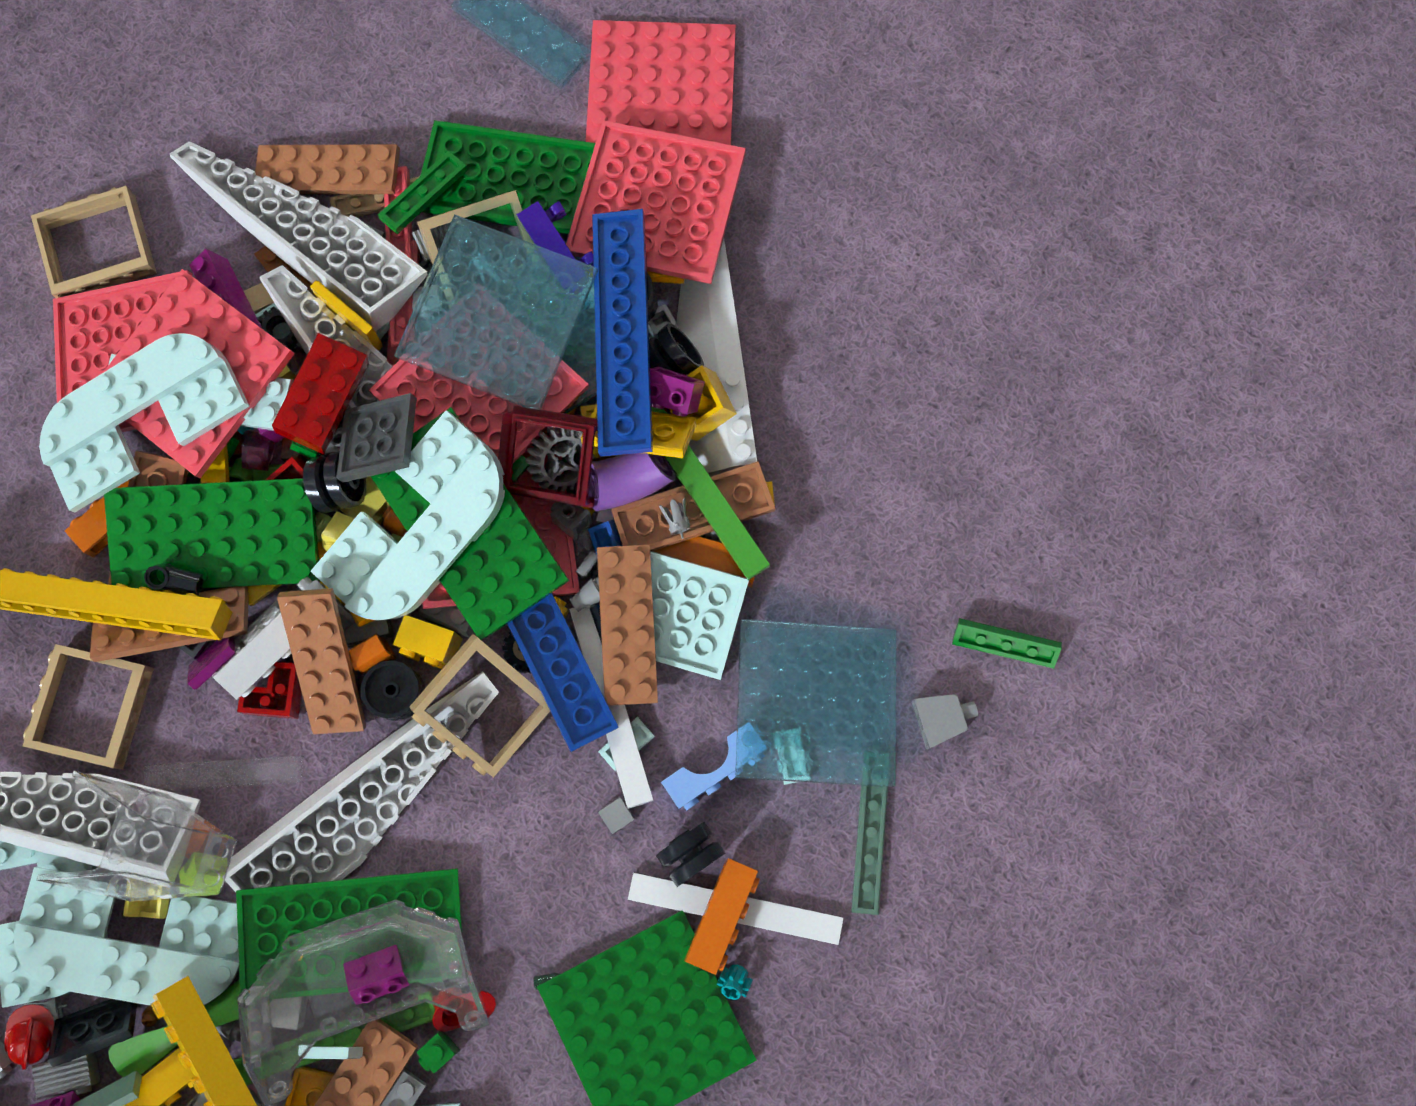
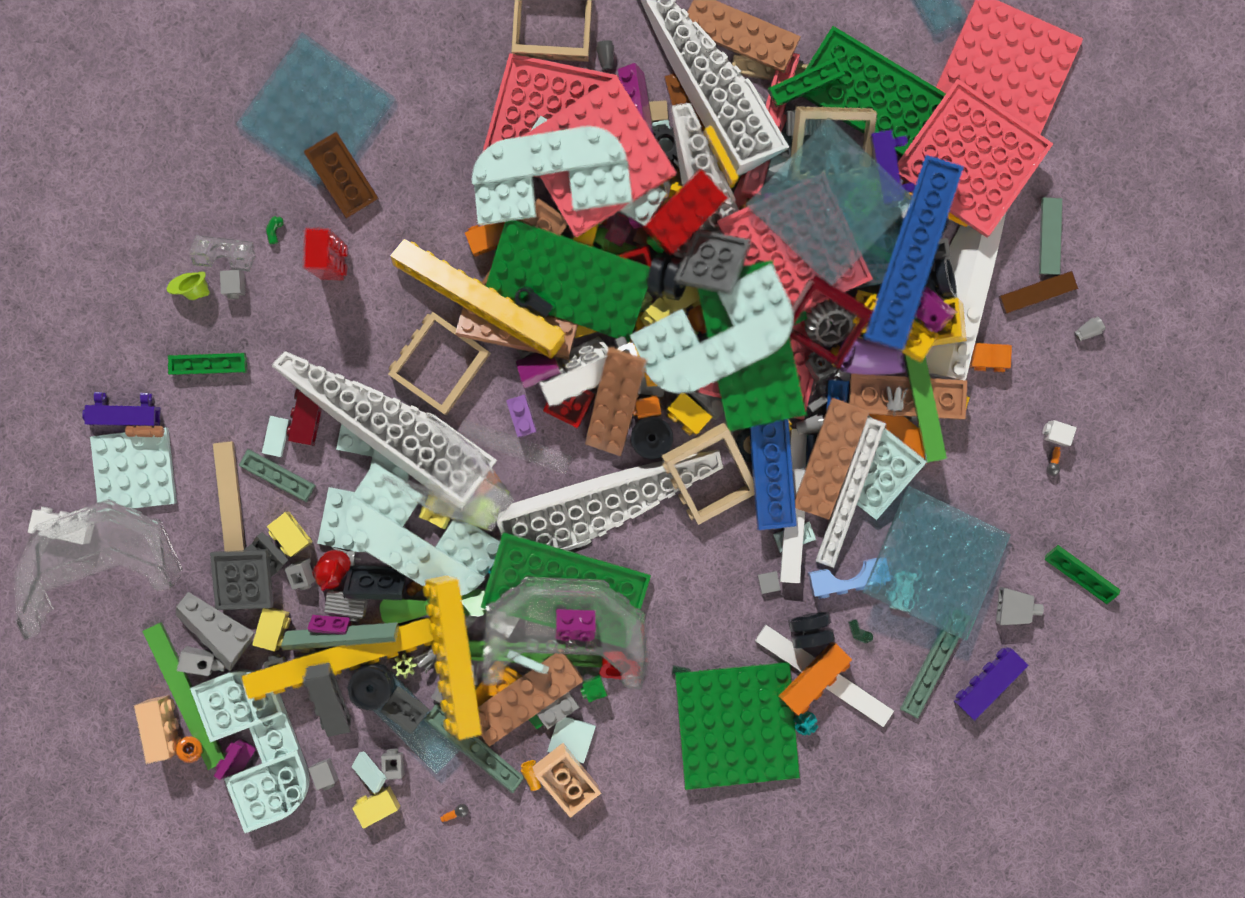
camera: 20 degrees right, 10 degrees up
(172, 254) = (606, 54): none -> dark grey cone
(217, 730) = (521, 416): none -> medium lavender brick
(671, 658) = (850, 492): none -> white tile
(758, 836) = (859, 634): none -> clear green arm
(779, 424) = (991, 356): none -> orange brick
(793, 257) = (1050, 236): none -> sand green tile
(806, 327) = (1038, 292): none -> reddish brown tile
(886, 344) = (1090, 329): none -> light grey cone
(901, 481) = (1058, 433): none -> white brick
(914, 526) = (1053, 468): none -> piece
(951, 829) = (990, 683): none -> dark purple brick

